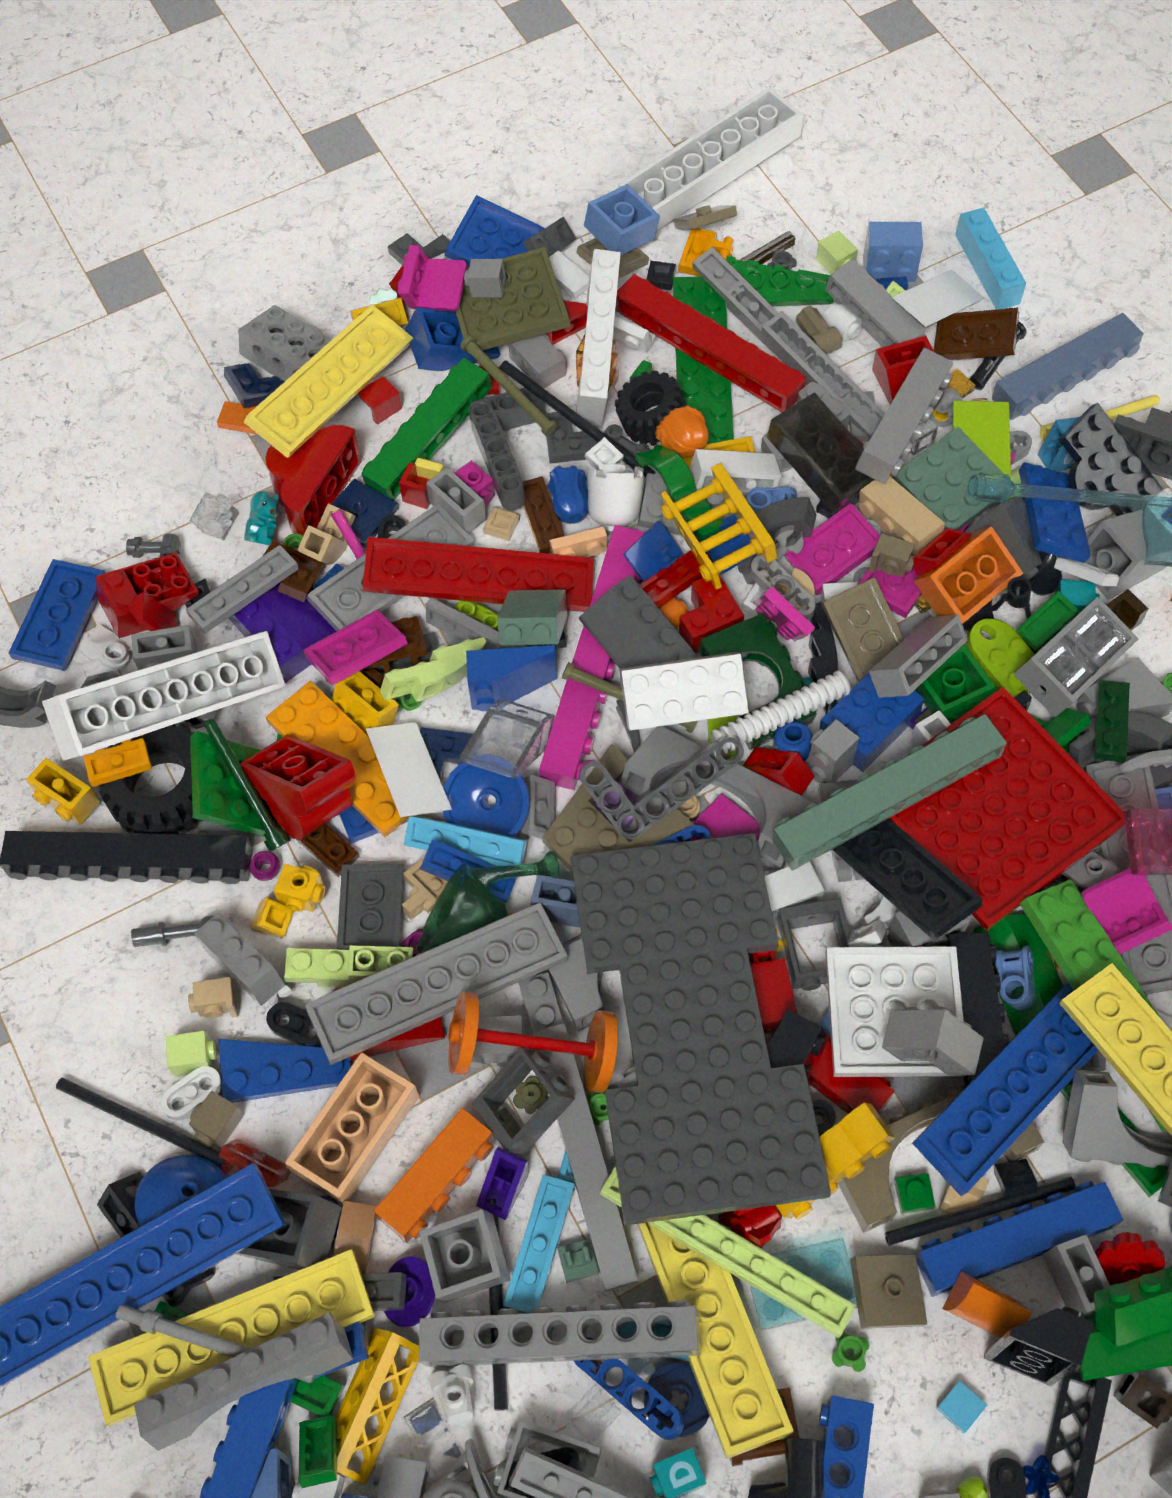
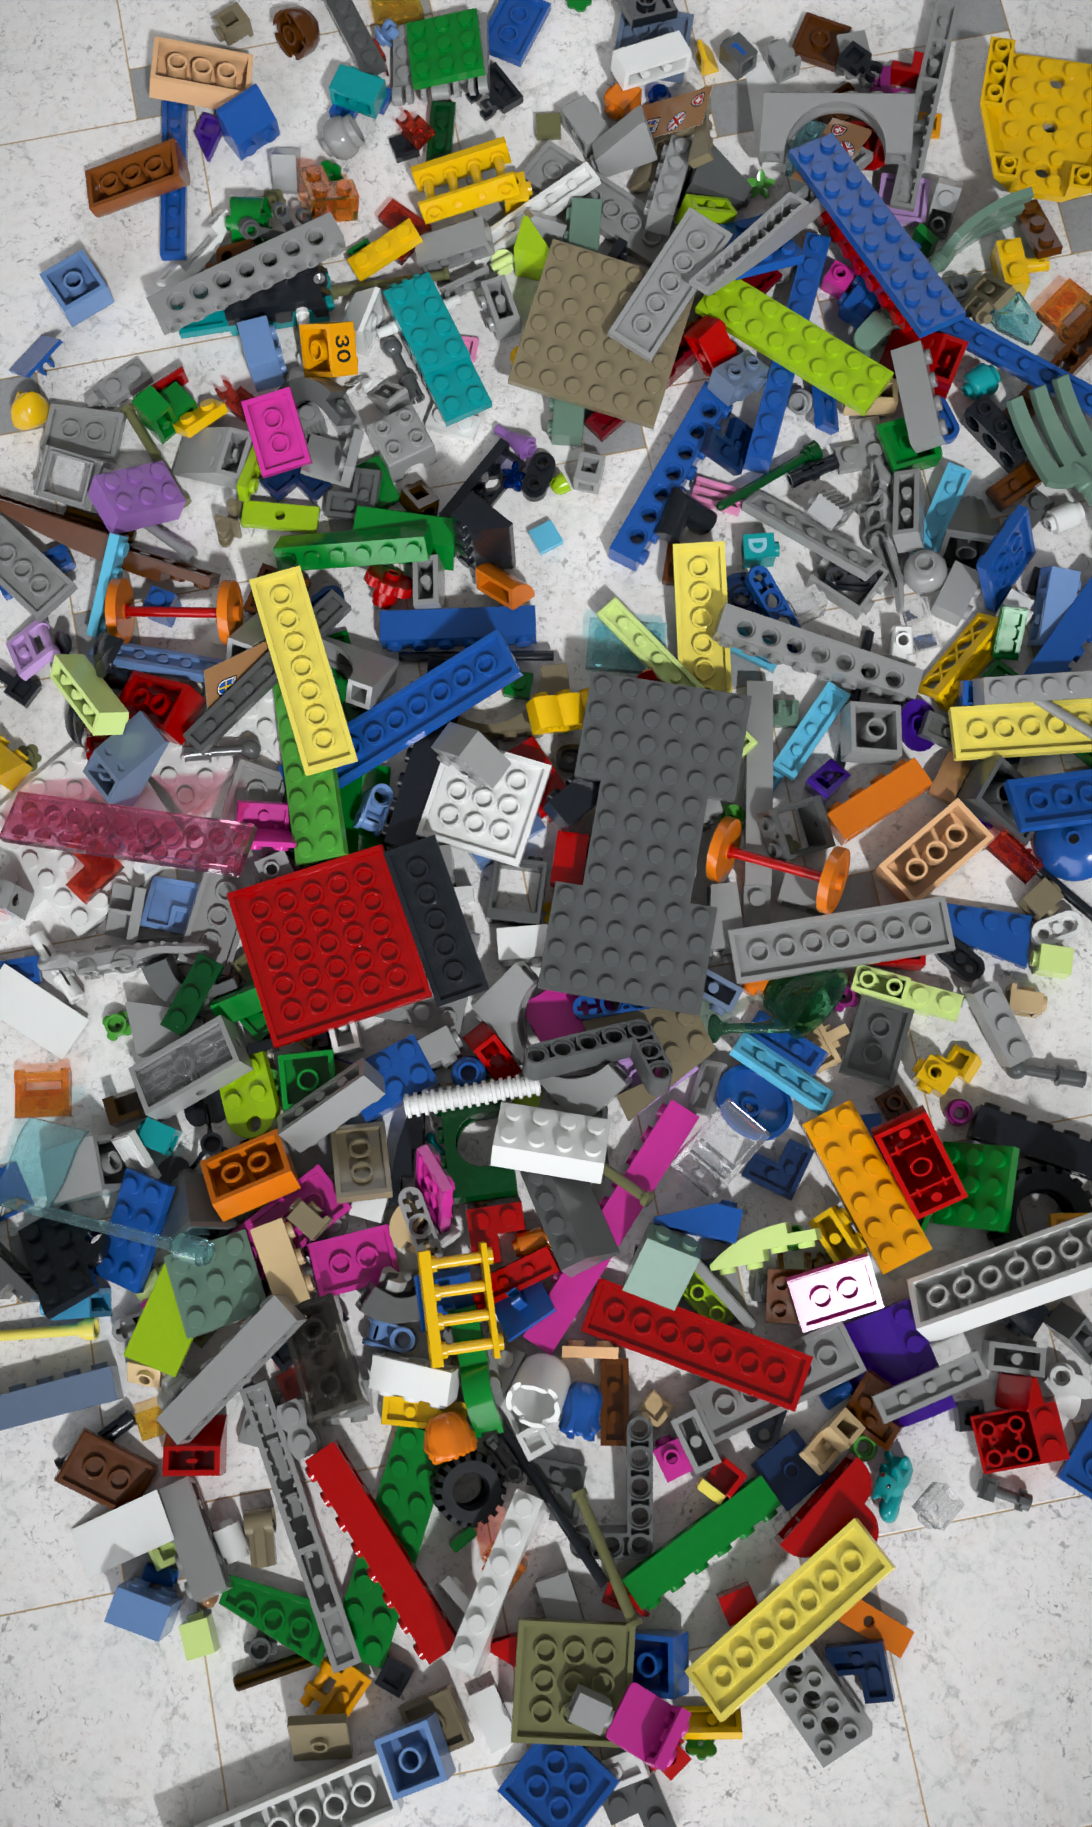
camera: 160 degrees left, 15 degrees up
(274, 835) = (946, 1129): dark green piece -> none
(348, 533) = (810, 1430): dark pink piece -> none
(408, 769) = (815, 1153): white sticker -> none
(553, 237) = (497, 1770): dark grey slope -> none
(859, 1346) = (605, 587): bright green plate -> none
(868, 935) = (479, 874): white plate -> none
(887, 791) = (414, 976): sand green brick -> none
(888, 1291) = (567, 621): dark tan plate -> none
(939, 550) = (264, 1205): red slope -> none
(990, 259) = (44, 1572): medium azure brick -> none
(1047, 621) = (197, 1115): green tile -> none

